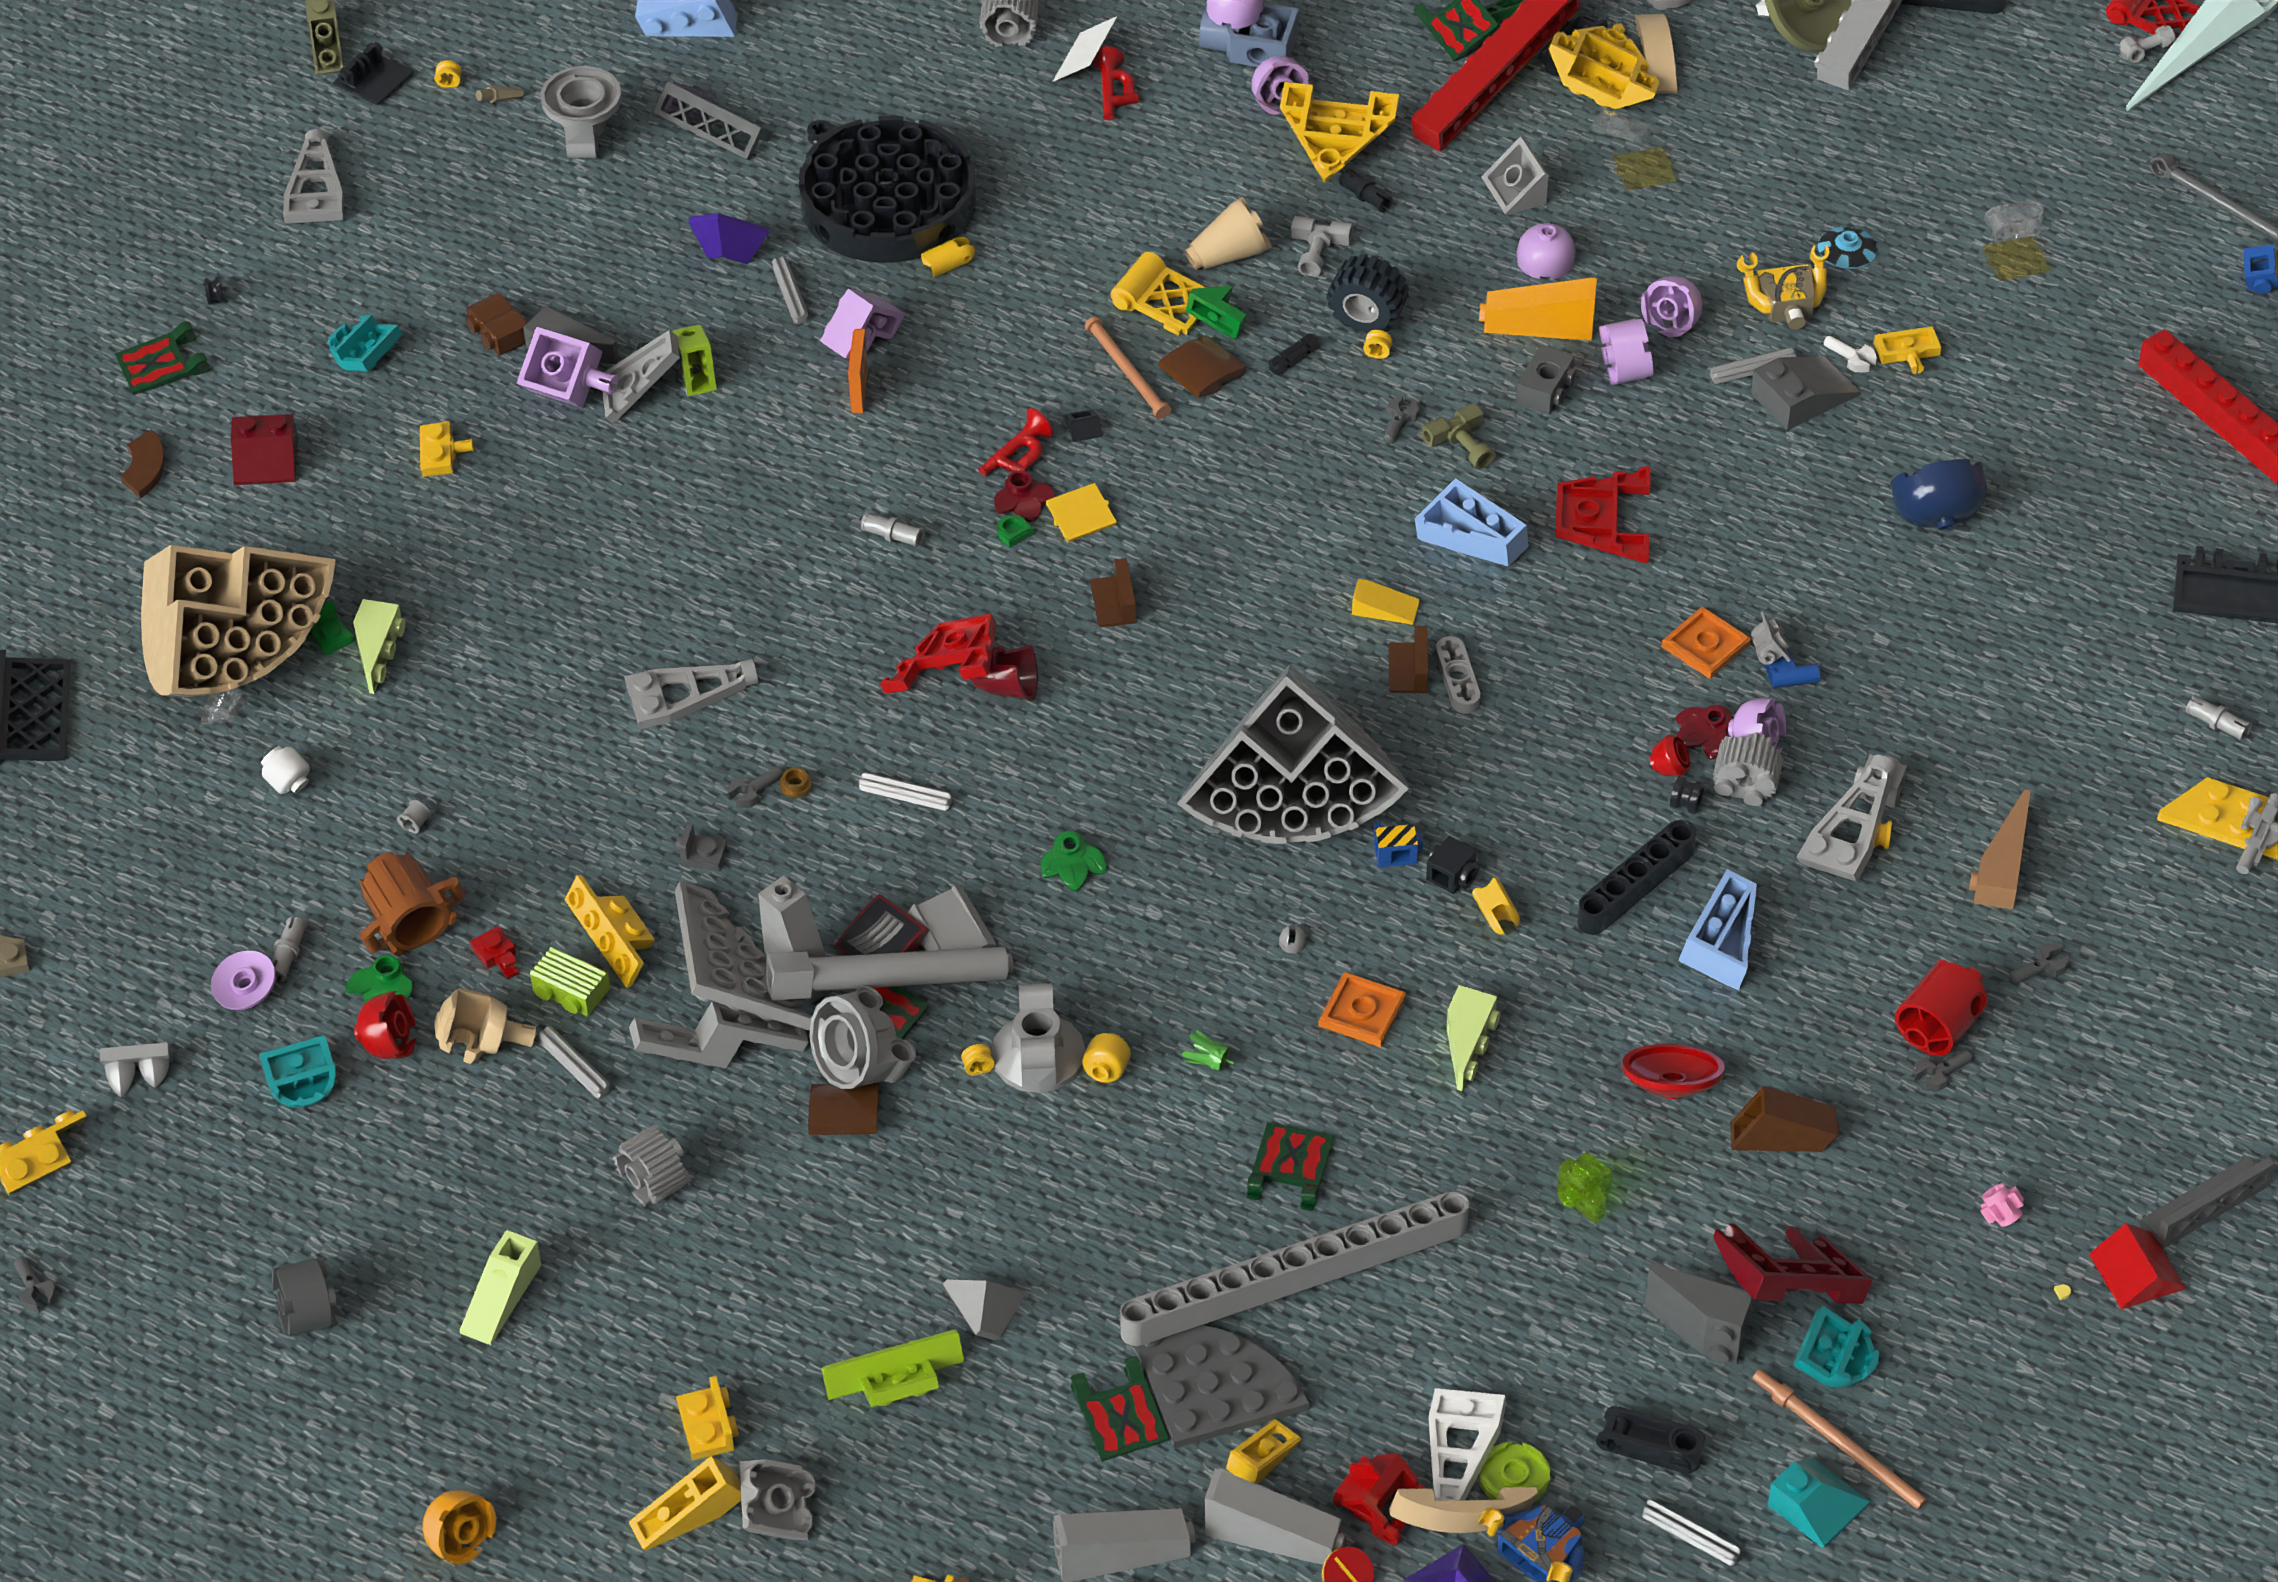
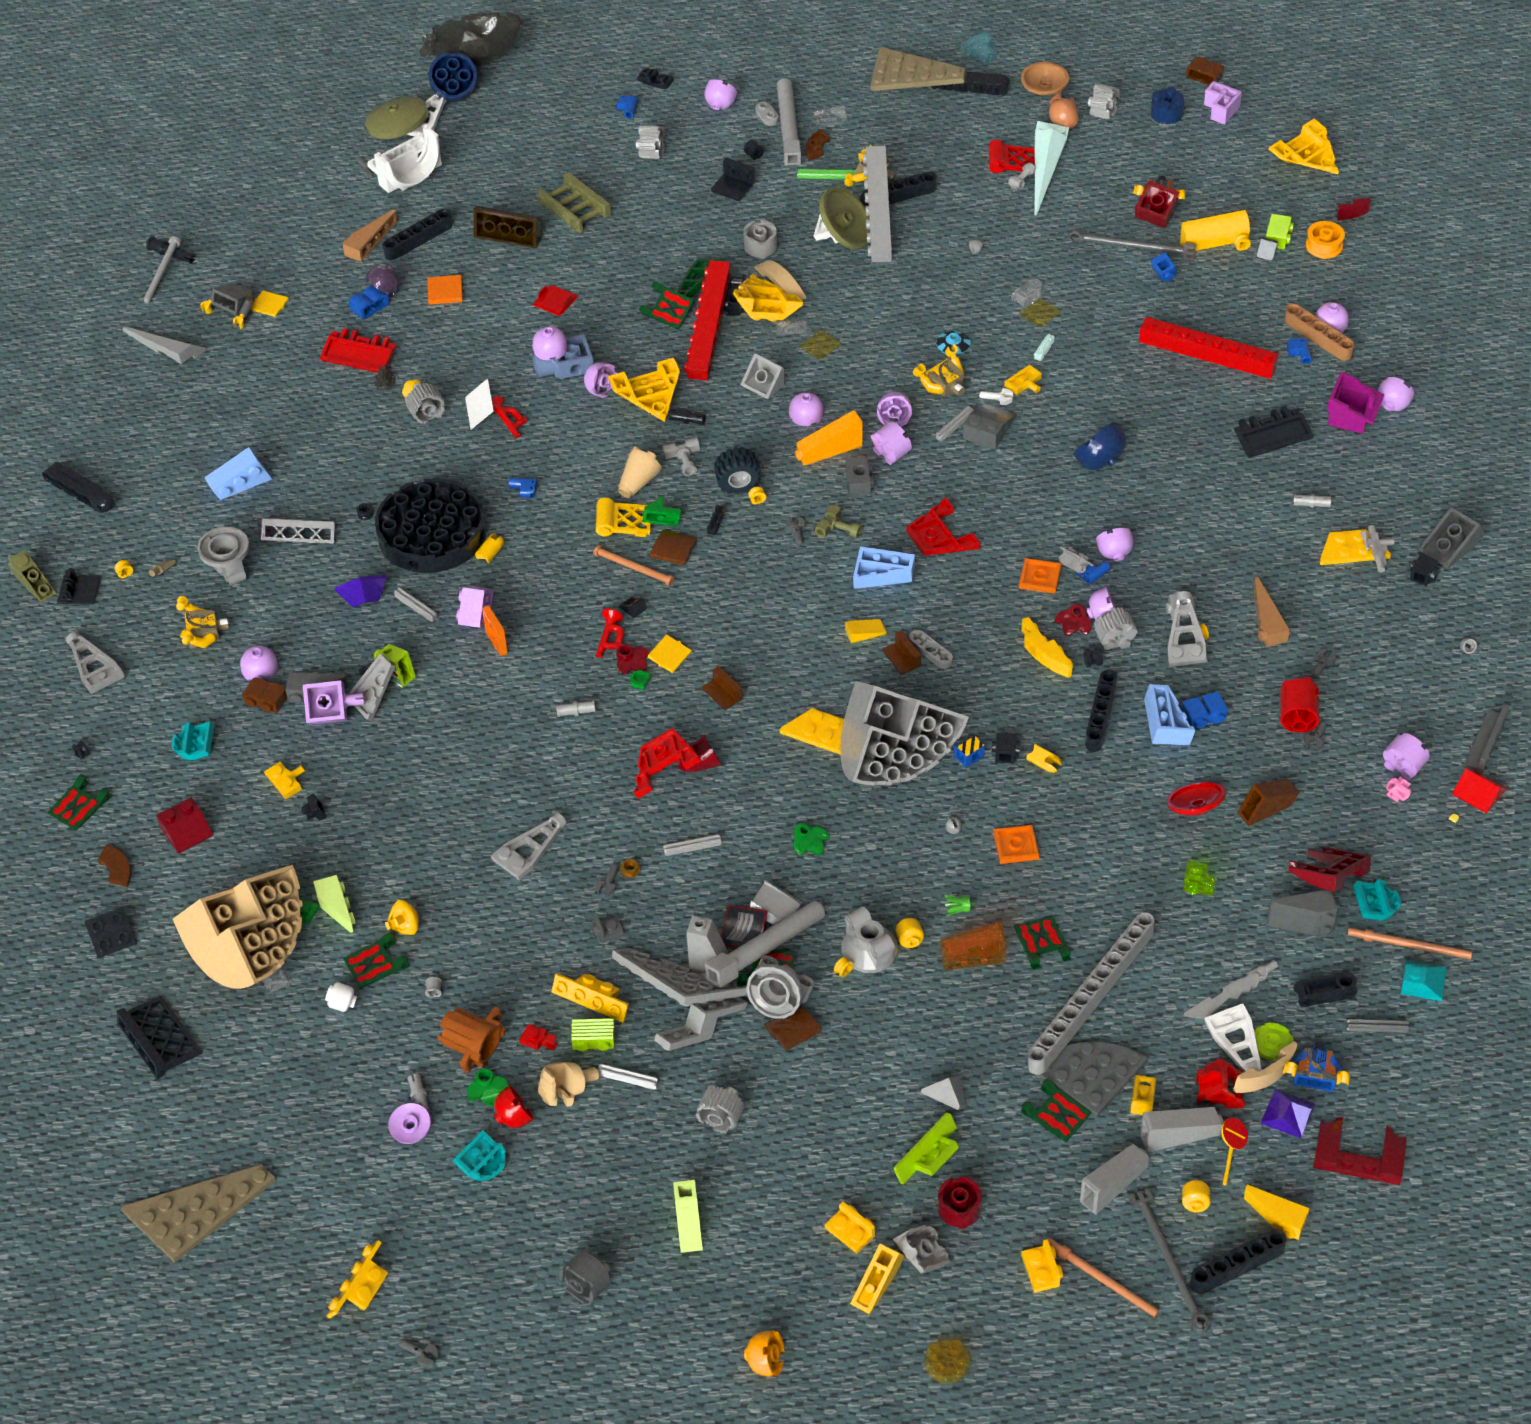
camera: 30 degrees left, 0 degrees up
(69, 546) = (110, 932): none -> black hinge
(121, 1063) = (375, 1203): light grey tile -> none
(367, 747) = (374, 963): none -> dark green flag
(443, 705) = (403, 918): none -> yellow piece
(446, 504) = (314, 808): none -> black tile
(485, 194) = (200, 625): none -> torso
(523, 278) = (258, 663): none -> lavender cylinder
(876, 1461) = (959, 1202): none -> dark red brick
(1062, 191) = (526, 485): none -> blue piece
(1177, 1123) = (974, 948): none -> clear orange wedge
(1202, 711) = (816, 729): none -> yellow wing
(1468, 1023) = (1078, 829): yellowish green slope -> none
(1513, 1373) = (1232, 991): none -> light grey sword
(1623, 752) = (1045, 651): none -> yellow slope
(1670, 756) = (1070, 642): red cone -> none
(1776, 947) = (1212, 712): none -> blue piece
(1851, 645) = (1115, 544): none -> lavender cylinder
(1980, 311) = (1044, 347): none -> light aqua axle
(1993, 118) = (975, 246): none -> light grey hinge
(2049, 1160) = (1405, 755): none -> lavender brick

